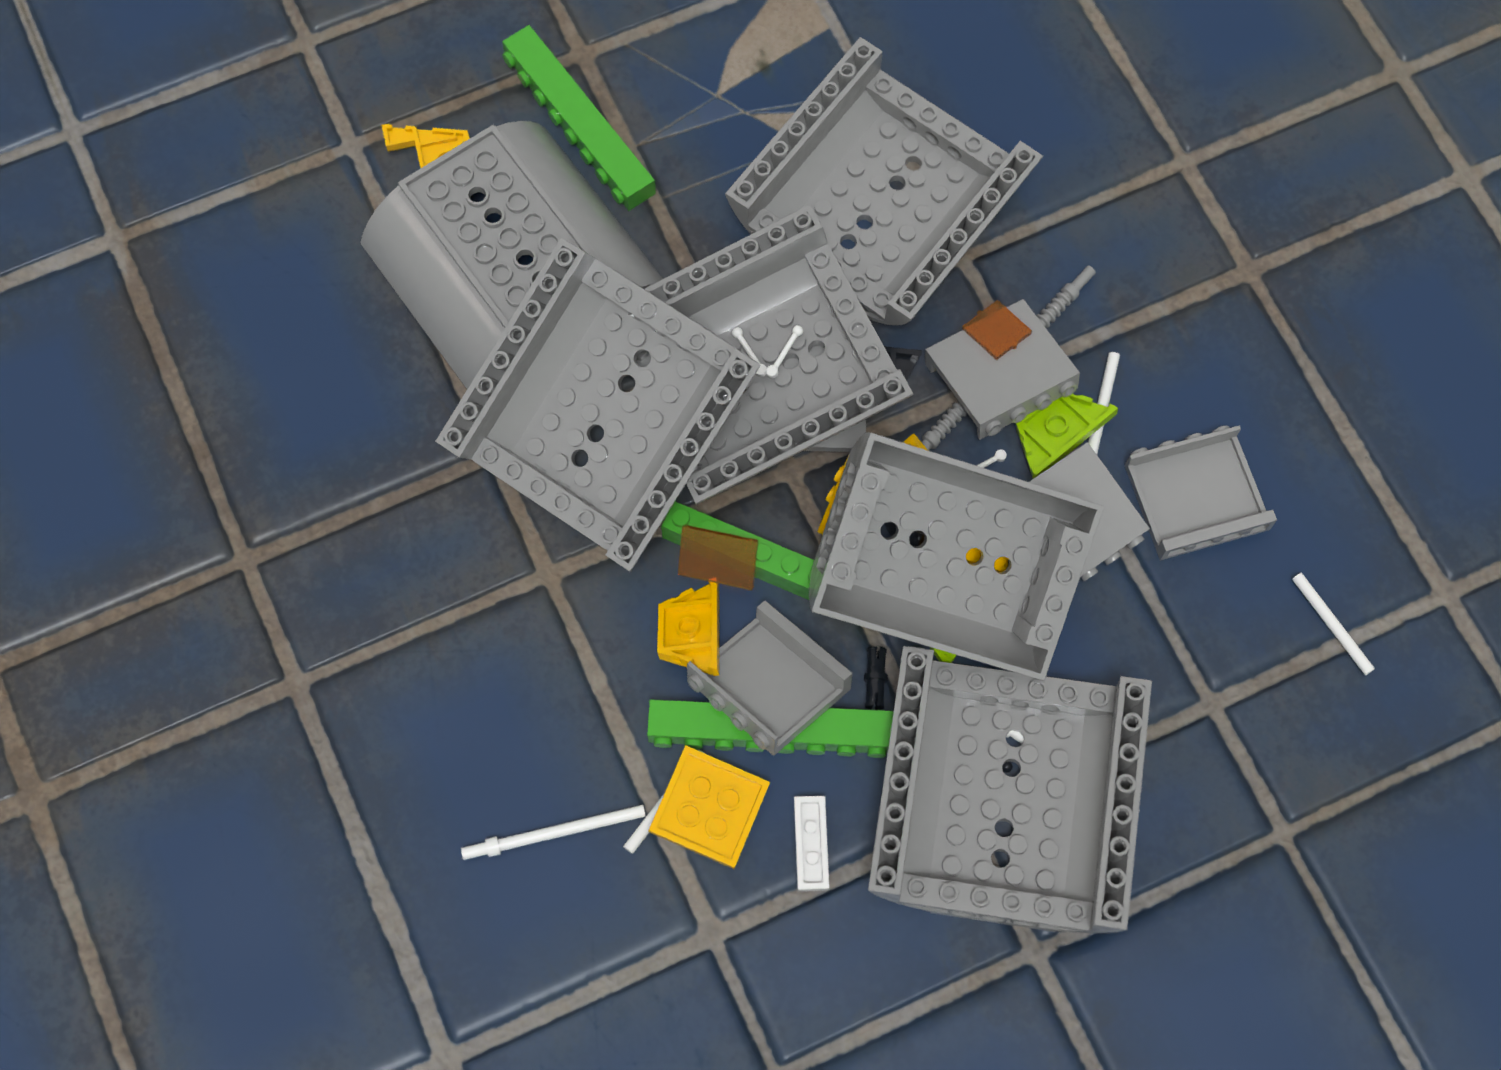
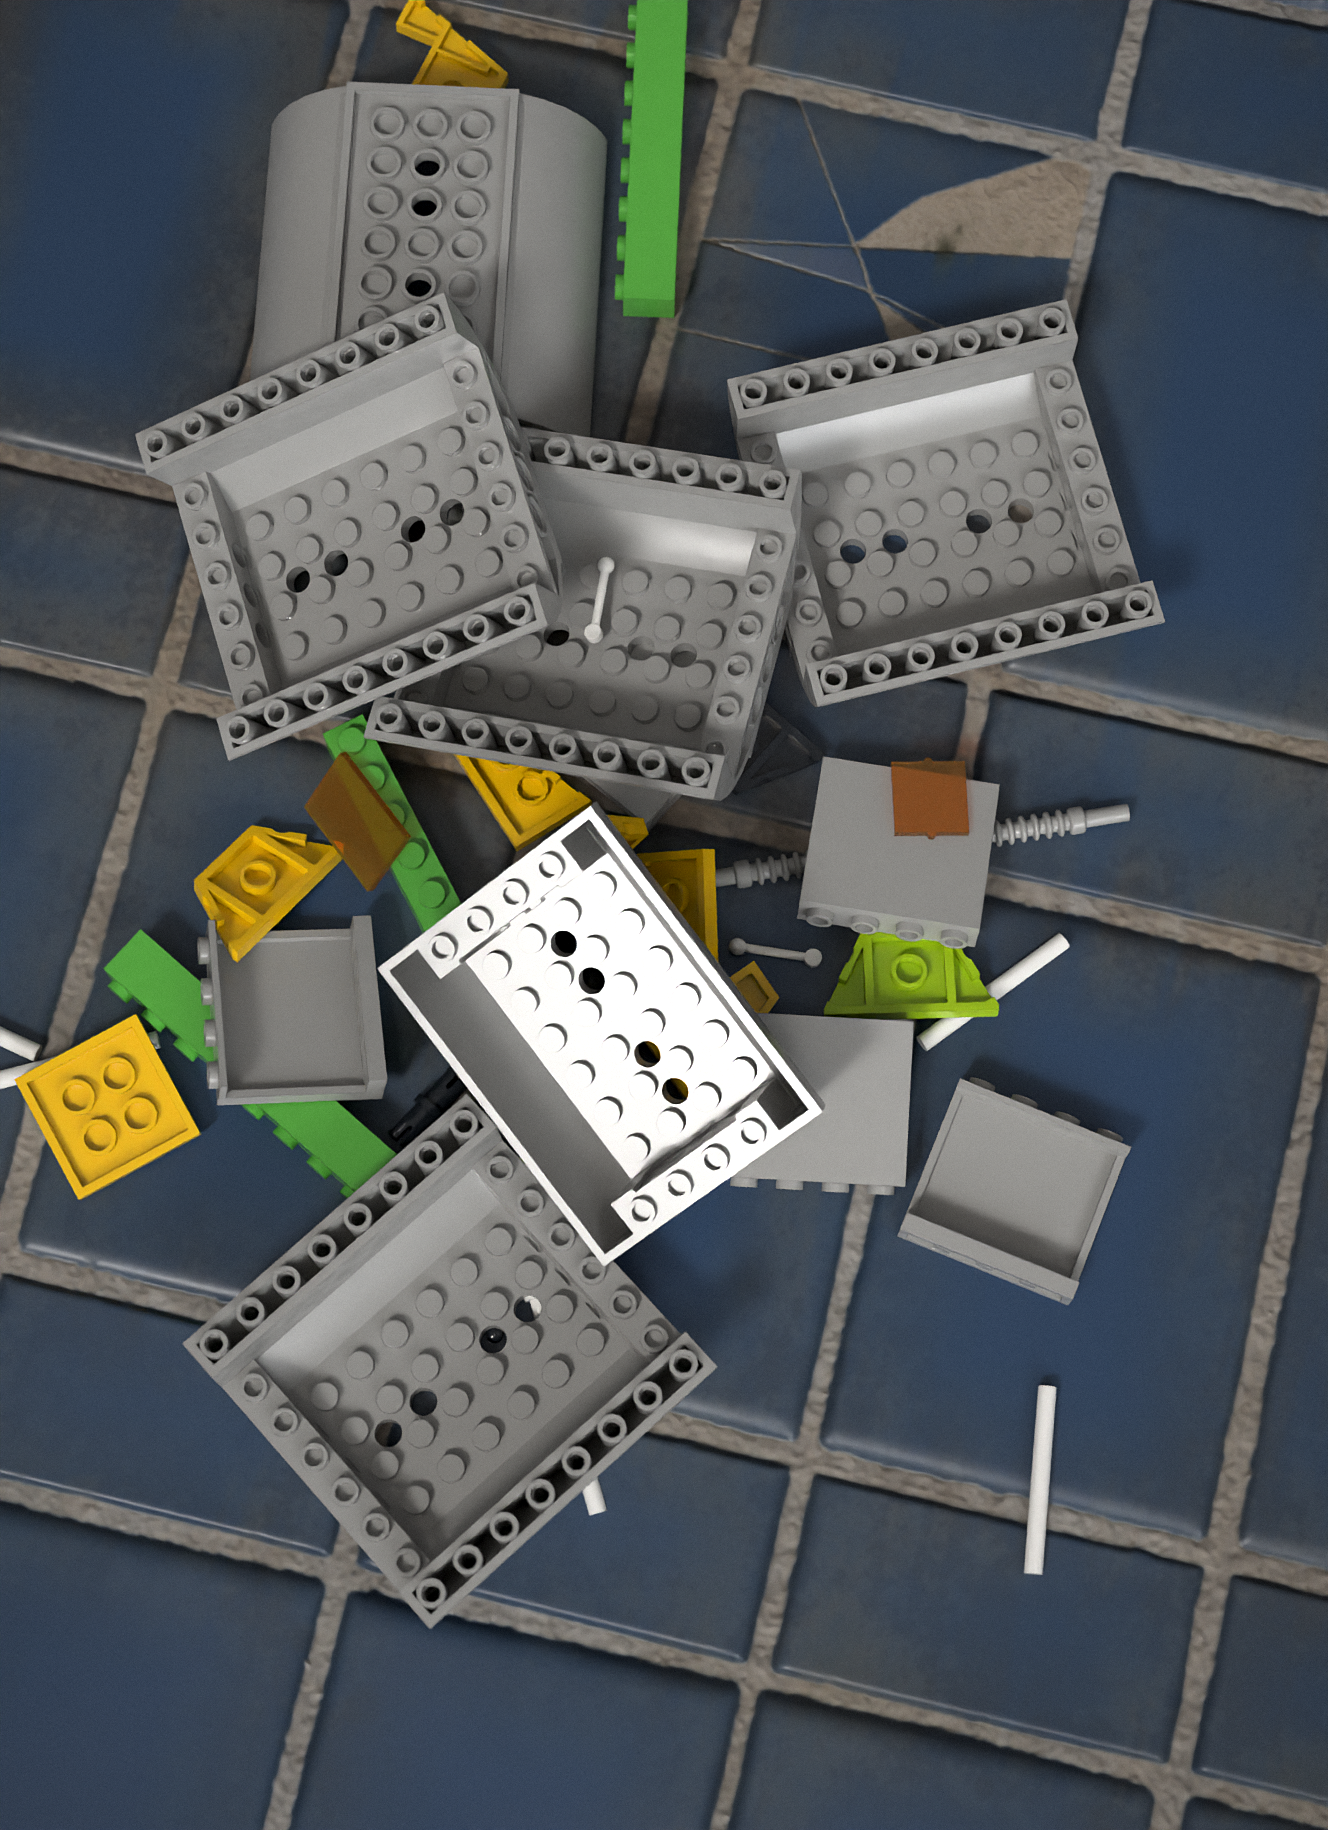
camera: 40 degrees right, 5 degrees up
(772, 370) = (605, 644): white hinge -> none
(785, 484) = (523, 798): none -> yellow wing
(811, 843) = (189, 1241): white plate -> none

